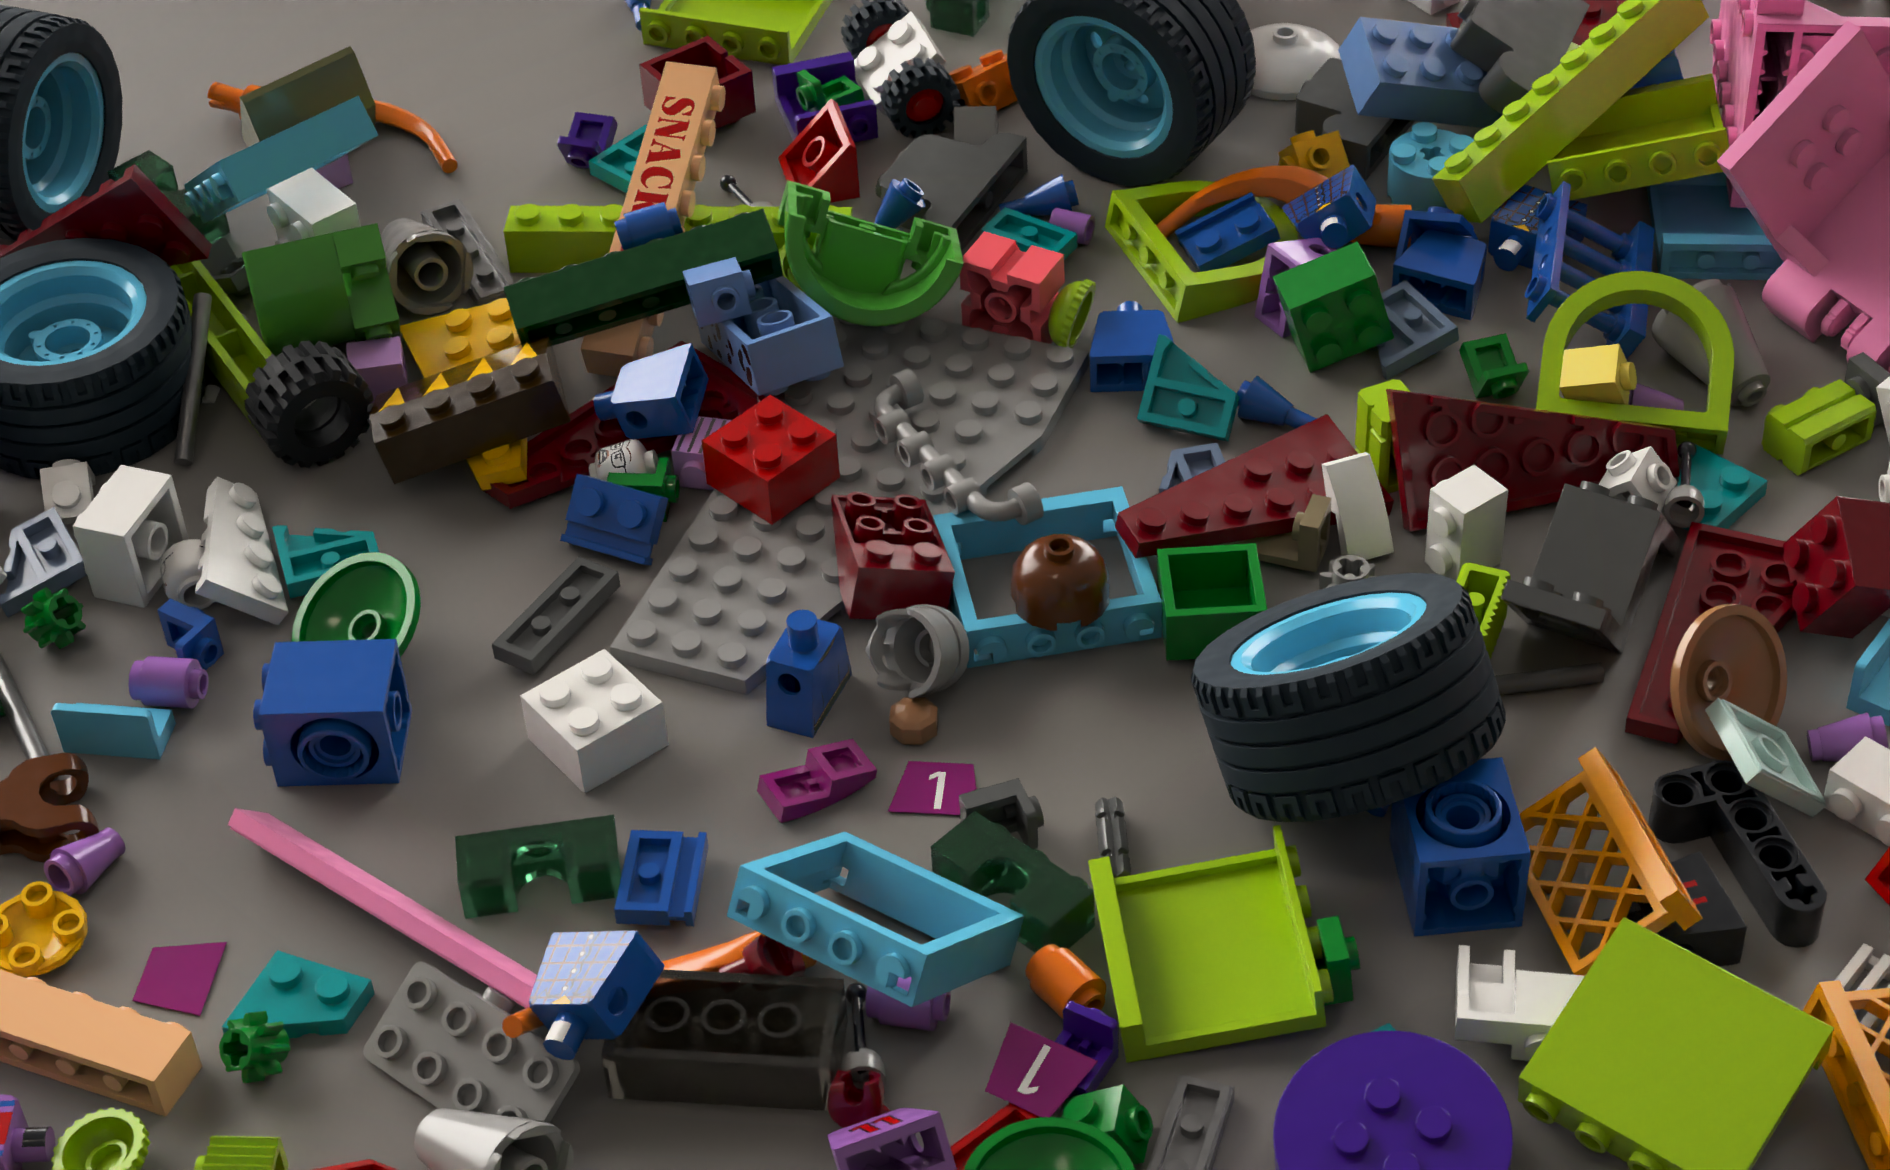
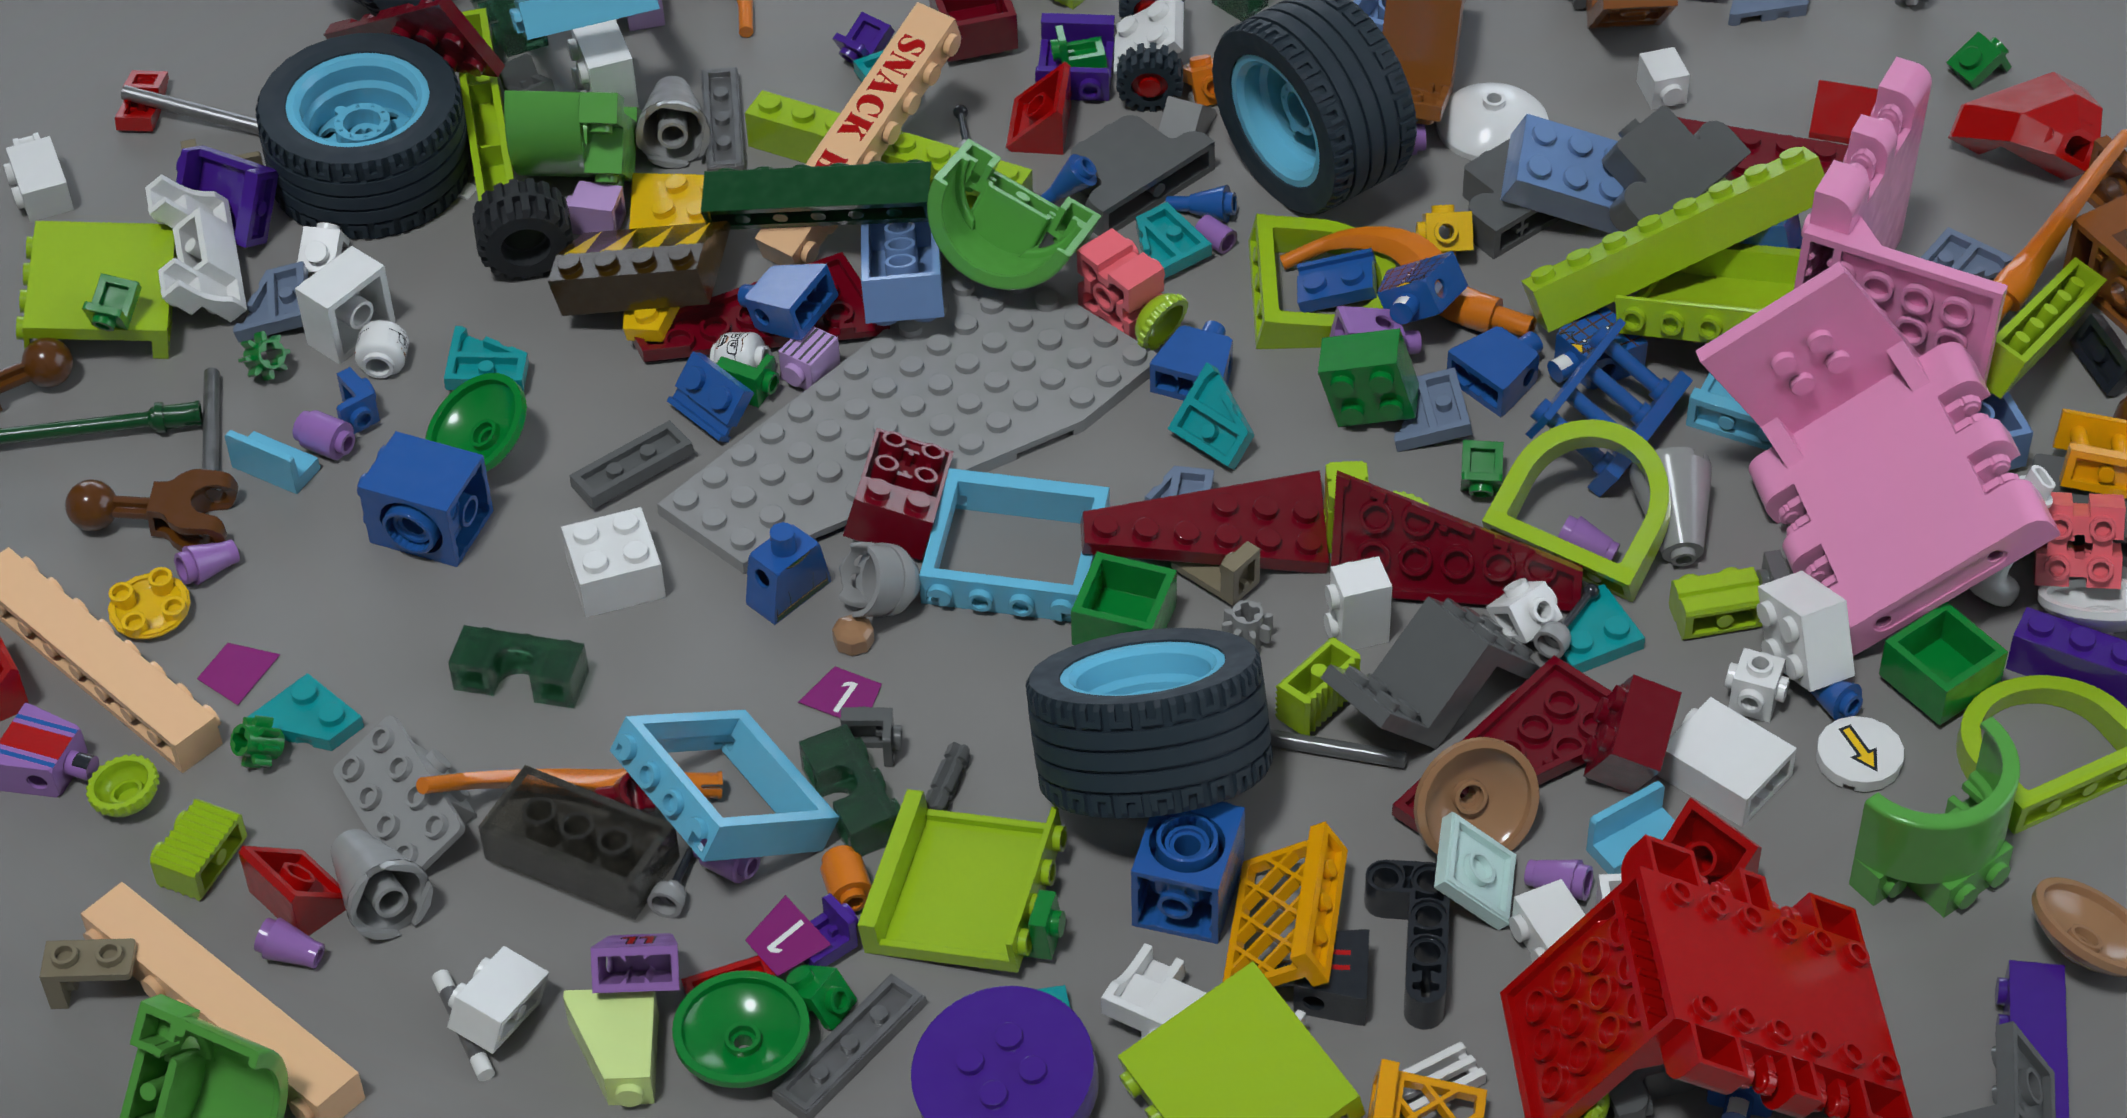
camera: 20 degrees right, 5 degrees up
(192, 387) = (448, 181): flat silver bar -> none
(238, 555) = (419, 342): white wing -> none
(386, 904) = (401, 666): bright pink tile -> none
(591, 986) = (490, 774): blue torso -> none
(647, 224) = (840, 148): blue brick -> none
(661, 878) = (601, 703): blue plate -> none
(719, 291) = (867, 224): medium blue brick -> none
(771, 459) = (847, 382): red brick -> none
(826, 778) = (767, 661): magenta slope -> none
(852, 1105) = (643, 917): dark red piece -> none
(941, 470) = (970, 430): light grey bar -> none
(1060, 582) = (1007, 557): reddish brown cylinder -> none
(1264, 404) = (1275, 445): blue cone -> none
(1358, 506) = (1285, 562): white slope -> none
(1416, 160) = (1525, 254): medium azure brick -> none
(1436, 218) = (1491, 319): blue bracket -> none
(1597, 374) = (1544, 505): light yellow brick -> none

